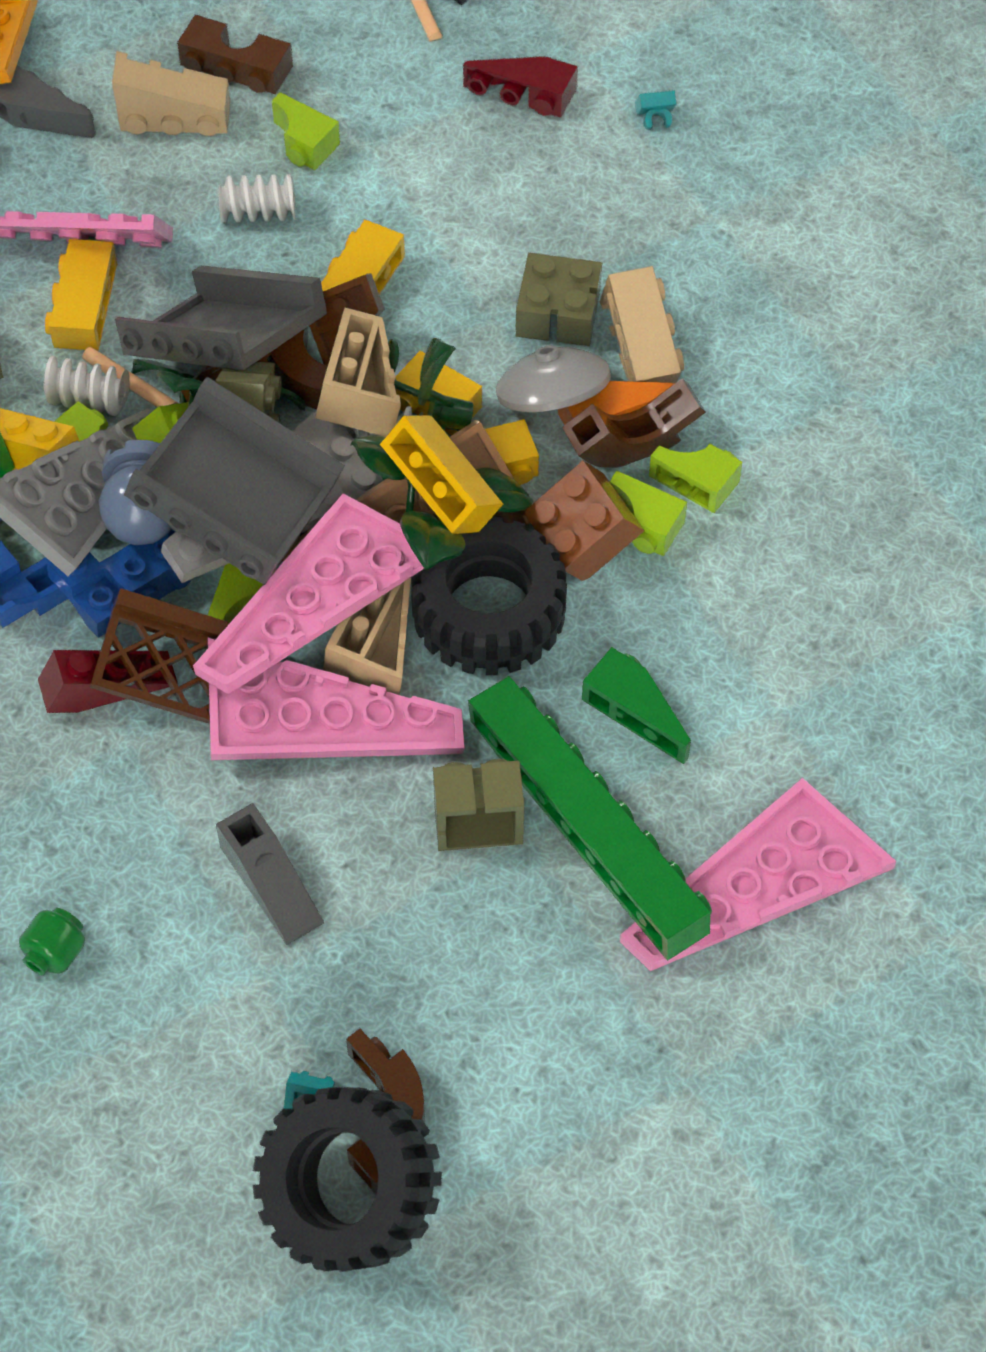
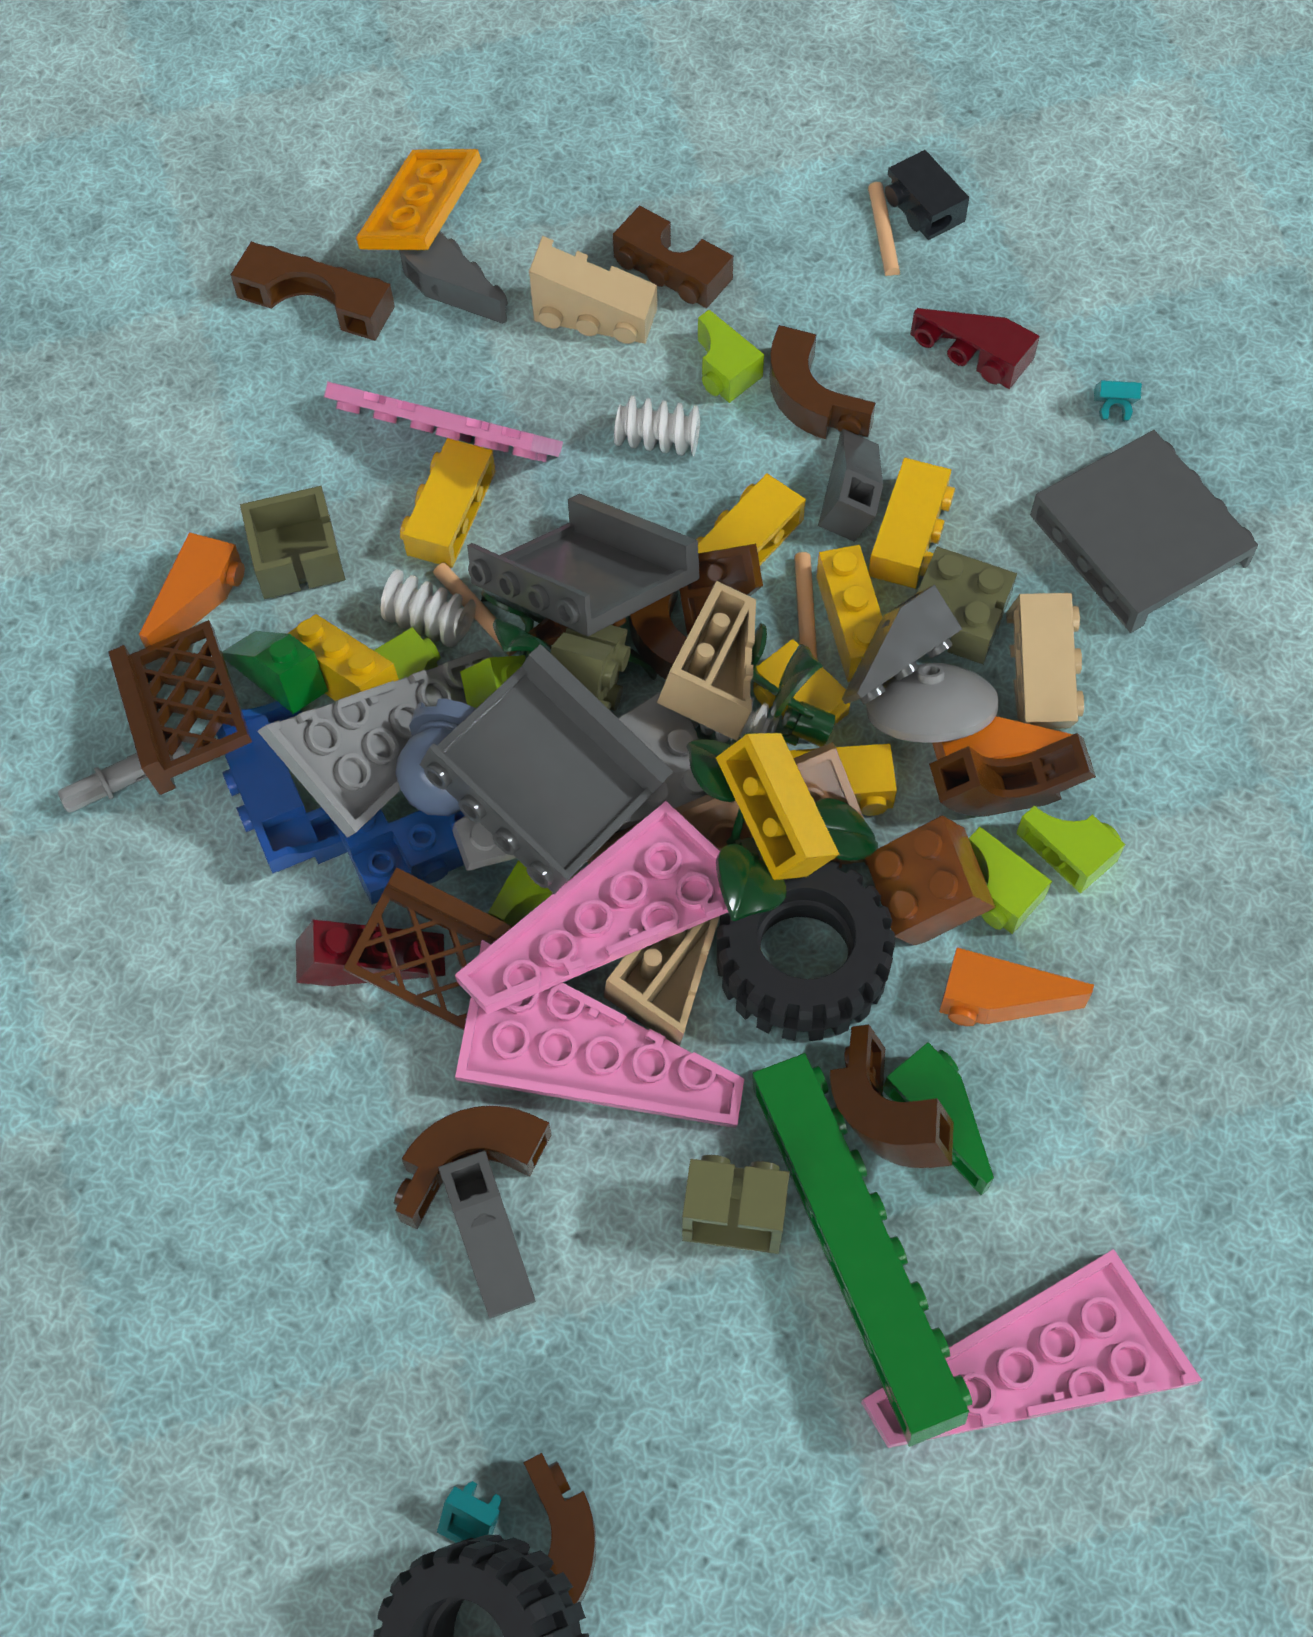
camera: 15 degrees right, 5 degrees up
(52, 941) = (235, 1260): green head -> none
(272, 791) = (500, 1131): none -> reddish brown arch
(381, 153) = (803, 398): none -> reddish brown arch
(419, 313) = (805, 601): none -> light nougat bar
(442, 220) = (852, 487): none -> dark grey slope
(468, 322) = (848, 603): none -> yellow brick
(501, 240) = (911, 523): none -> yellow brick
(515, 327) = (903, 636): none -> dark grey slope
(591, 718) = (900, 1132): none -> reddish brown arch
(665, 598) = (998, 991): none -> orange slope
(699, 210) = (1141, 528): none -> dark grey panel

